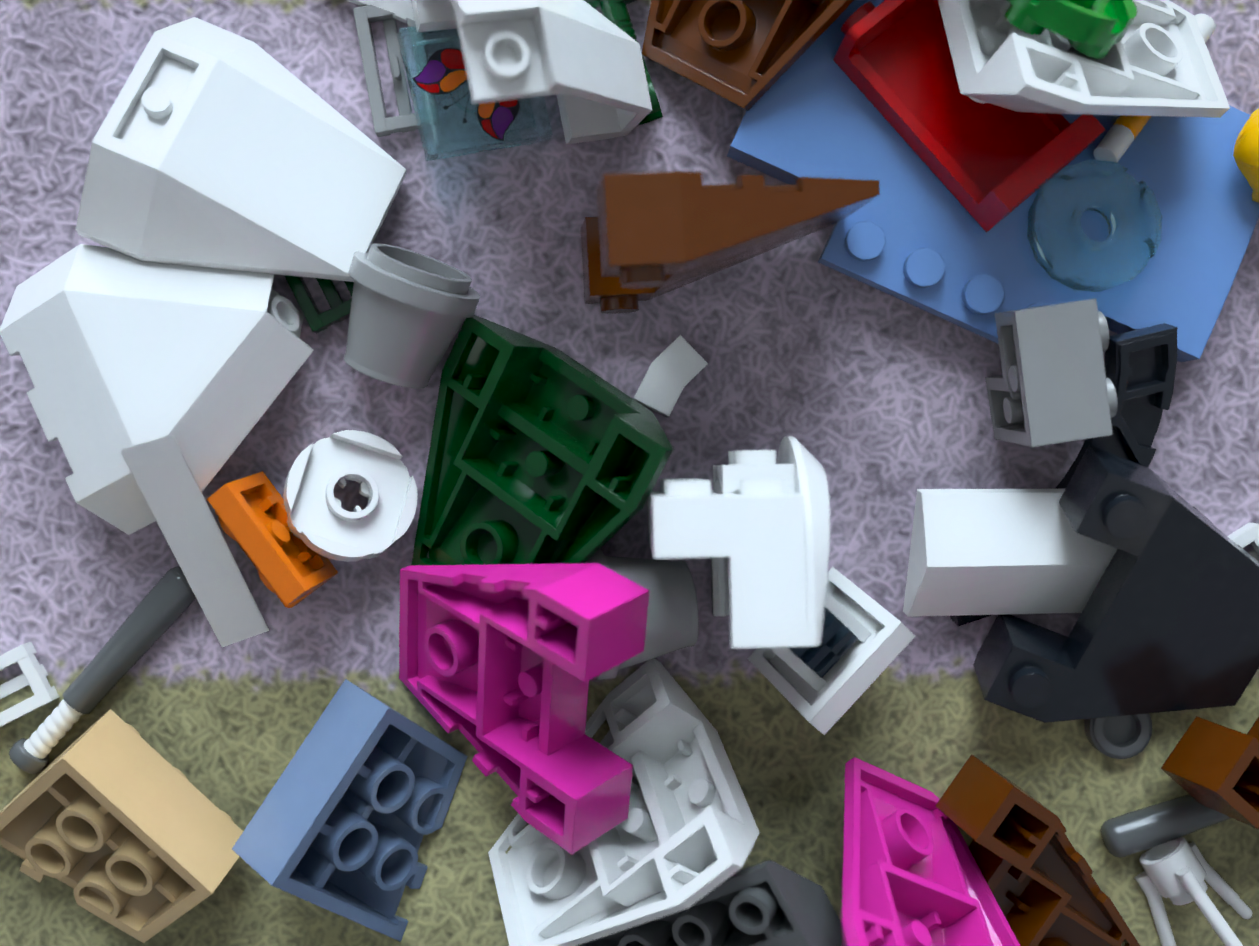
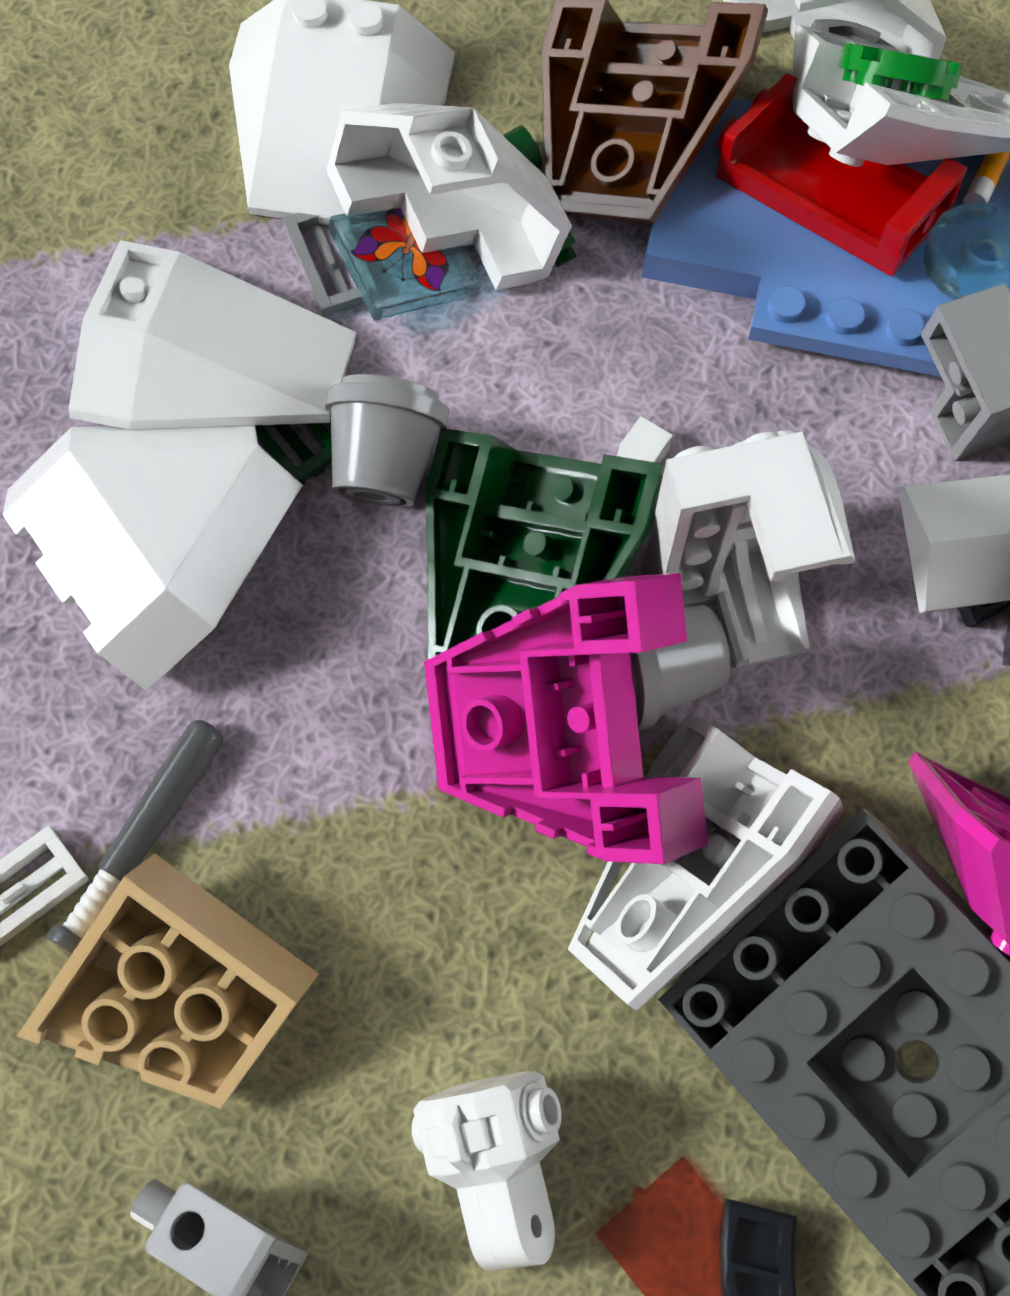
camera: 15 degrees left, 20 degrees down
(195, 538) = (221, 670): white sticker -> none
(256, 519) = (287, 672): orange bracket -> none
(318, 516) = (355, 639): white plate -> none
(354, 811) = (425, 915): sand blue wedge -> none
(674, 230) = (642, 295): reddish brown wedge -> none
(854, 650) = (843, 638): white plate -> none

